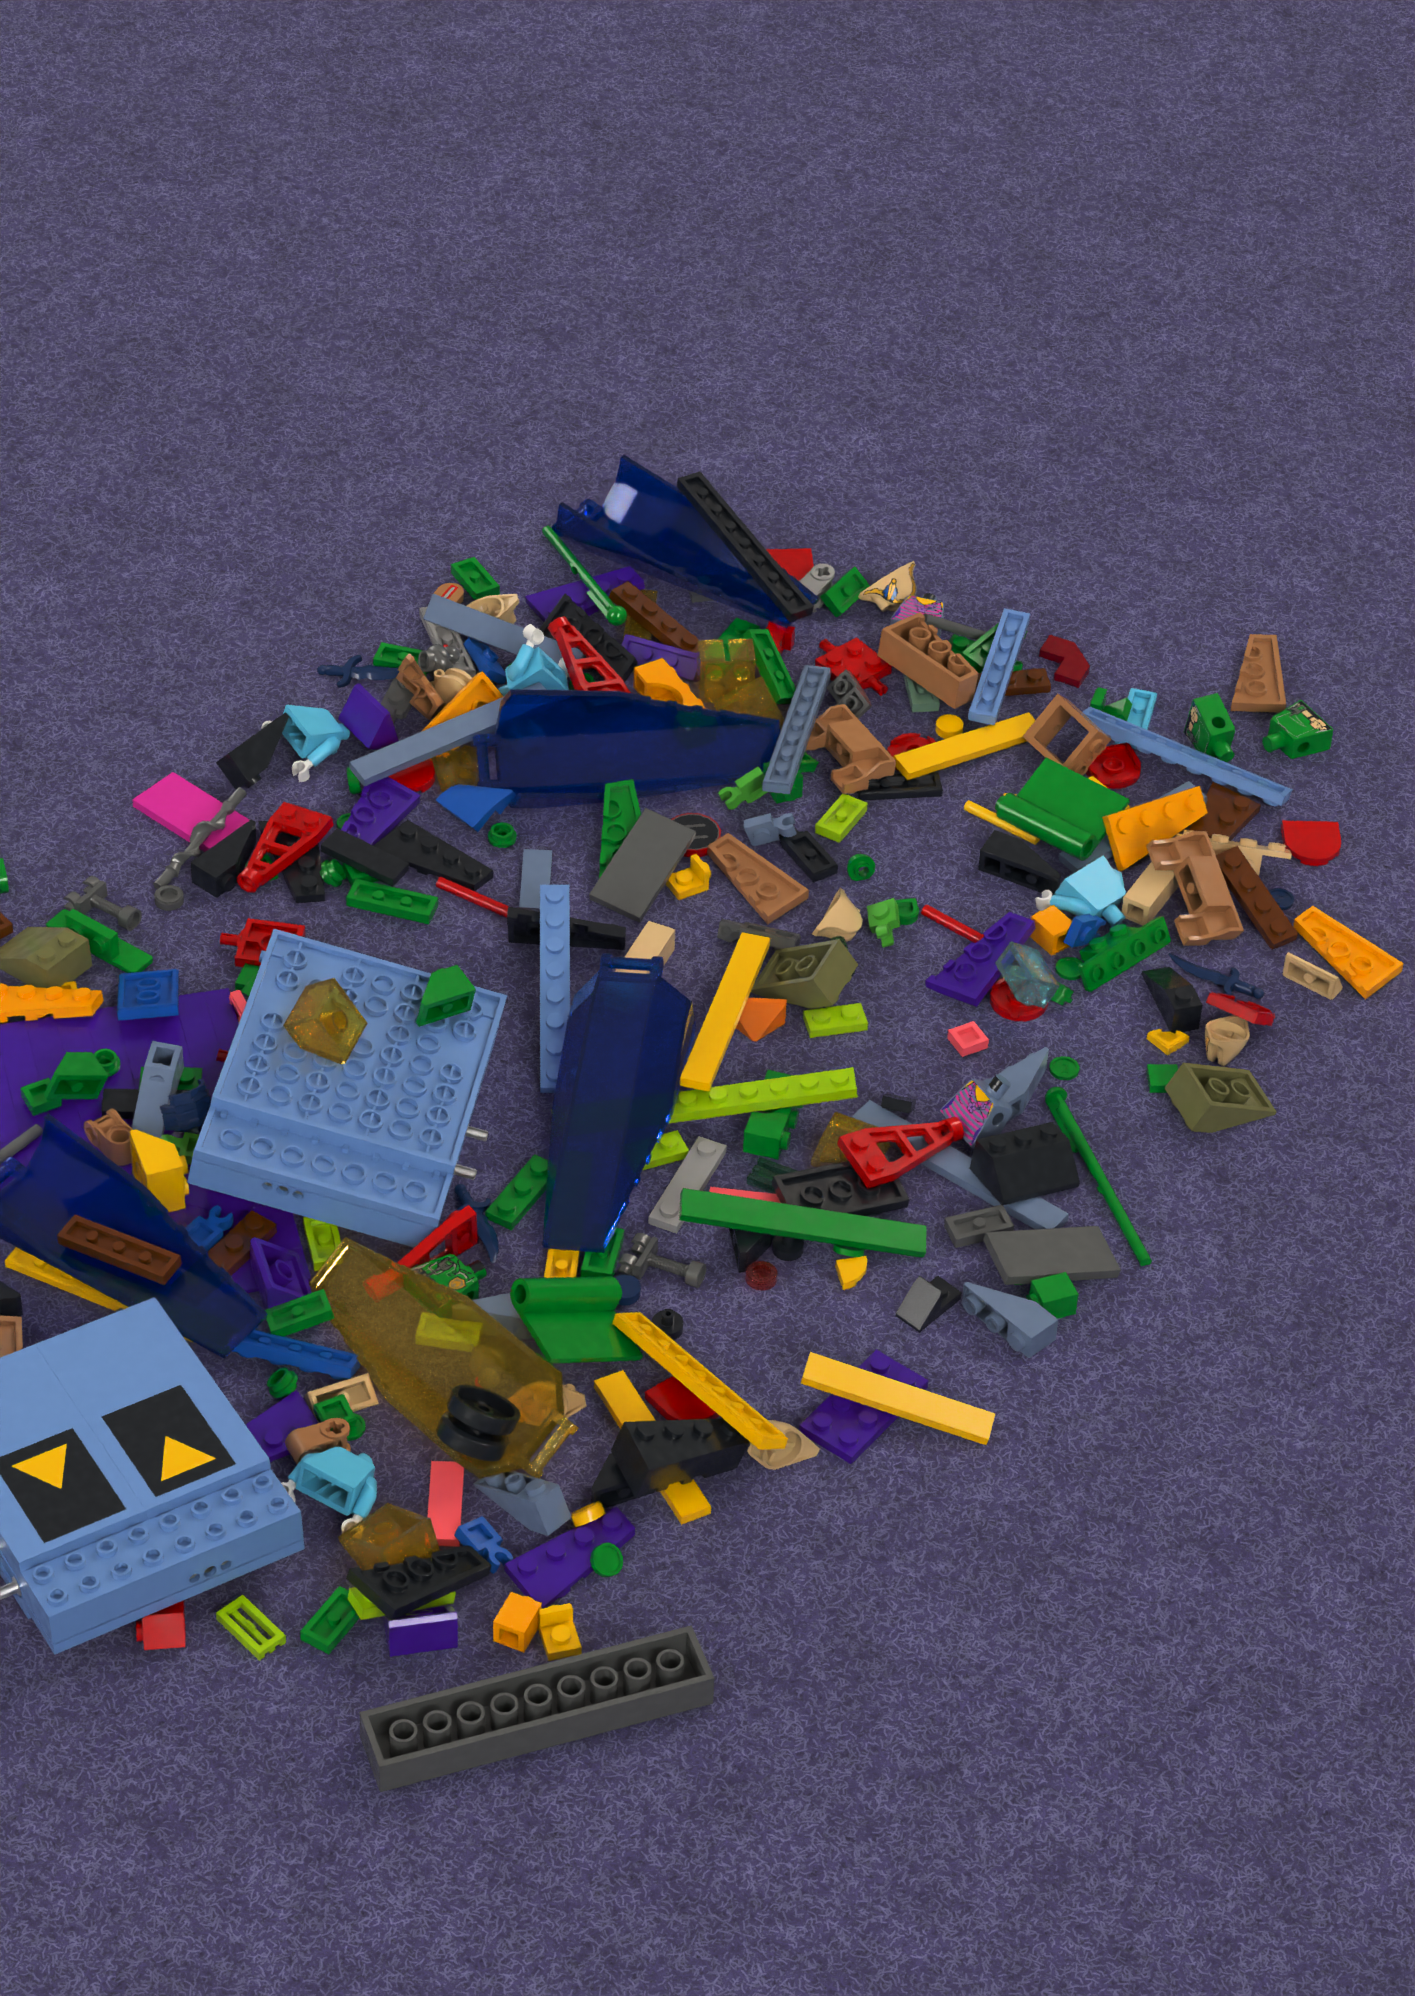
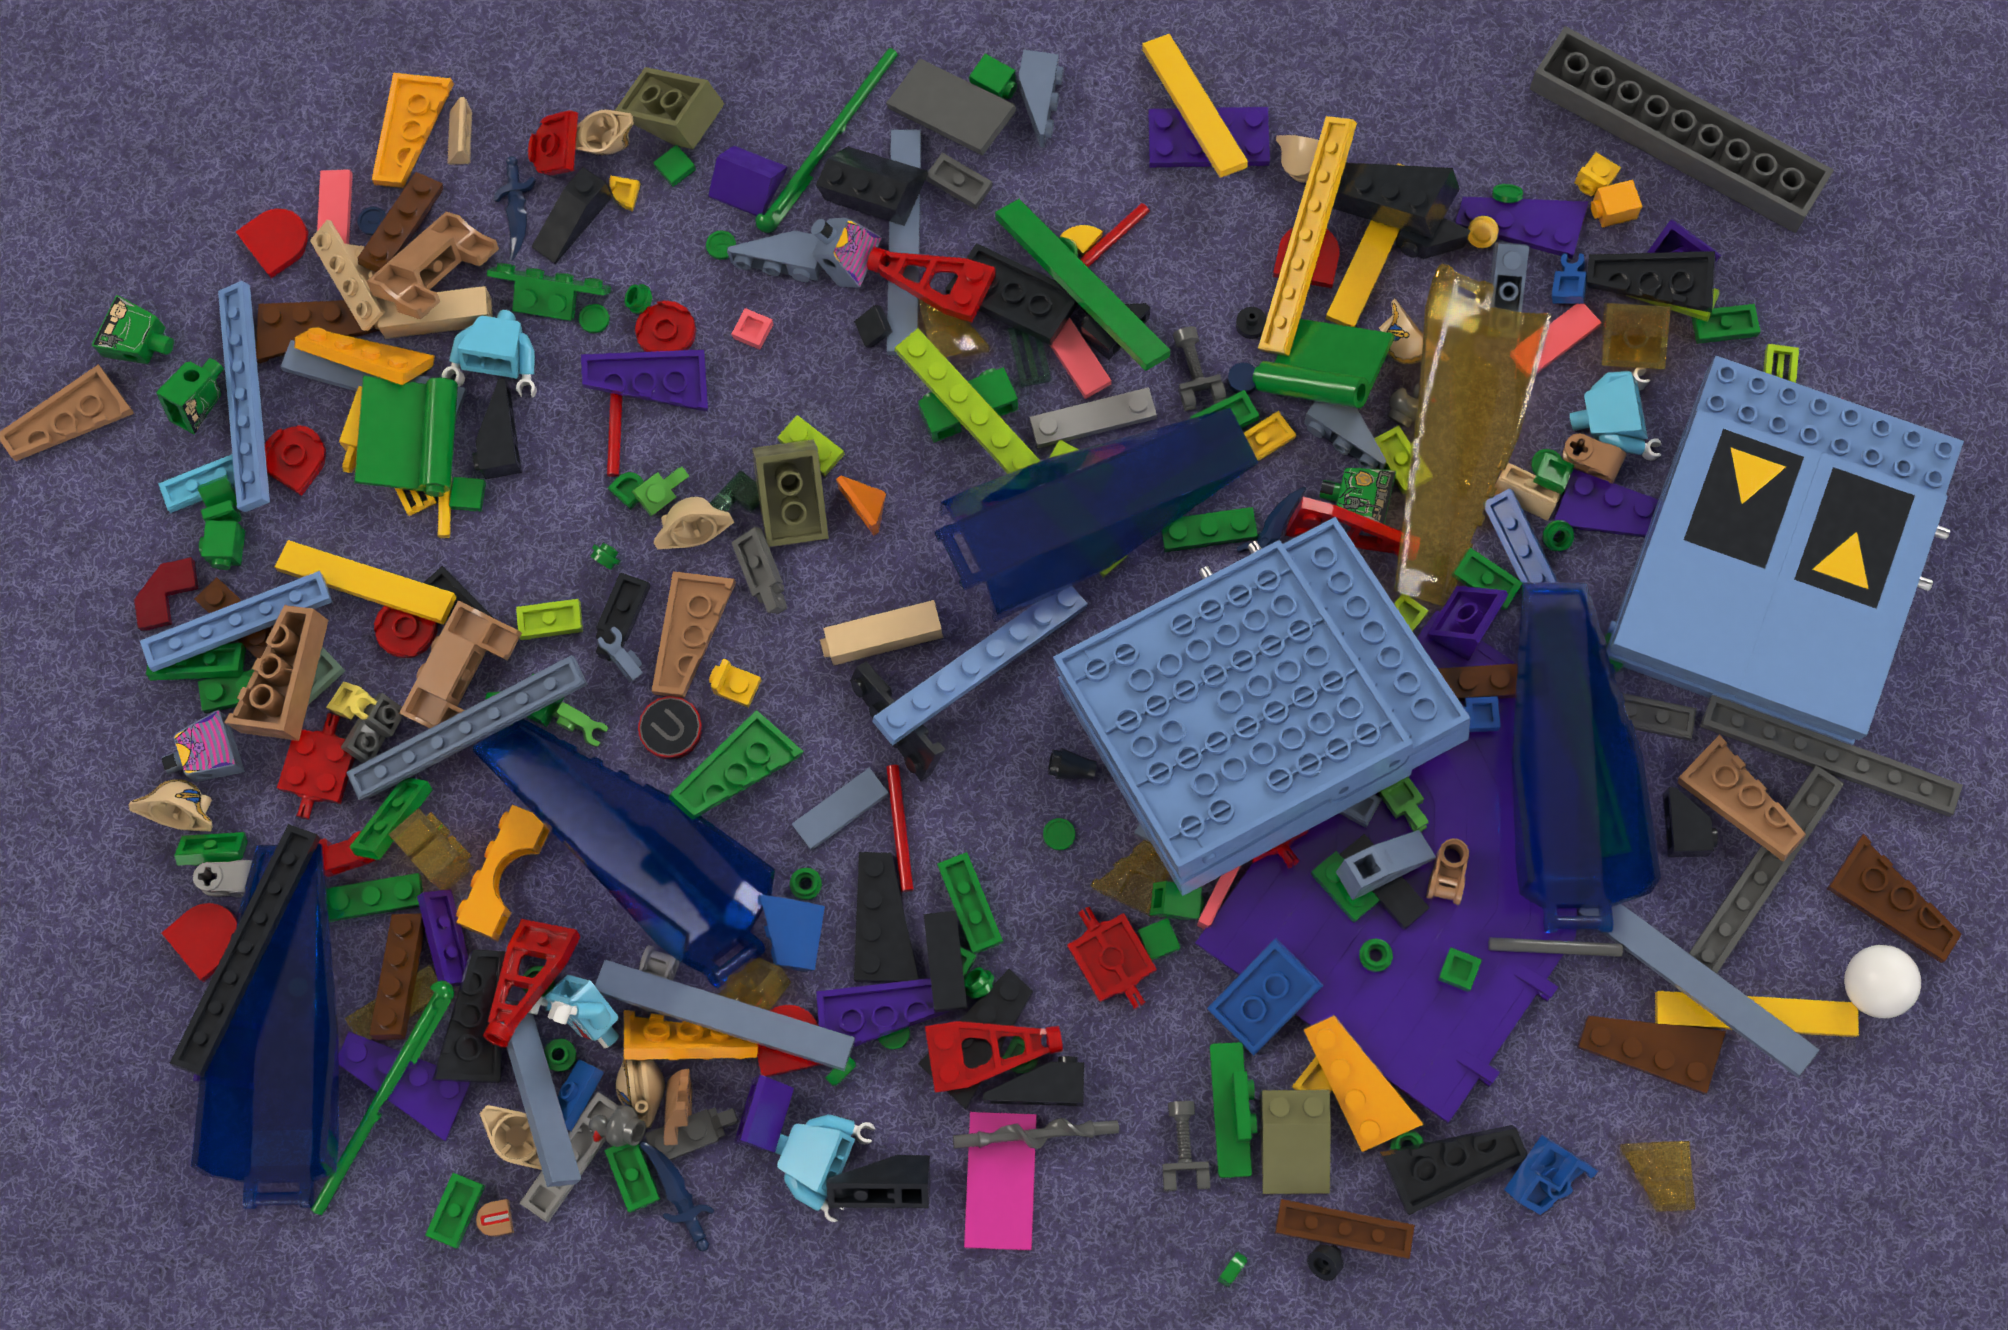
camera: 120 degrees left, 30 degrees up
(77, 1077) = (1425, 951): green slope -> none
(119, 1249) = (1565, 746): reddish brown plate -> none
(159, 1169) = (1465, 783): yellow slope -> none
(169, 897) = (1122, 1103): dark grey tile -> none
(187, 1109) = (1381, 818): dark blue hair -> none
(326, 1021) = (1251, 729): clear yellow slope -> none
(446, 995) = (1120, 680): green slope -> none
(478, 1423) = (1502, 330): black wheel -> none
(642, 865) = (758, 721): dark grey tile -> none
(724, 1012) = (894, 506): yellow tile -> none
(751, 699) = (459, 805): clear yellow slope -> none
(761, 1275) = (1142, 293): clear red tile -> none
(832, 1286) = (1115, 234): none -> red bar
(881, 694) = (350, 701): none -> light yellow plate
(927, 1302) = (1069, 164): slope -> none
(949, 726) = (343, 624): yellow tile -> none
(953, 627) = (201, 699): dark grey bar -> none
(984, 828) = (467, 494): none -> green tile
(1027, 974) = (654, 315): clear light blue brick -> none
(1051, 929) = (564, 352): light orange brick -> none
(1052, 721) = (268, 507): medium nougat window -> none
(1075, 691) = (222, 544): none -> green brick
(1083, 930) = (552, 322): blue plate -> none
(1110, 1111) = (745, 180): none -> dark purple slope
(1306, 881) = (335, 200): none -> coral tile

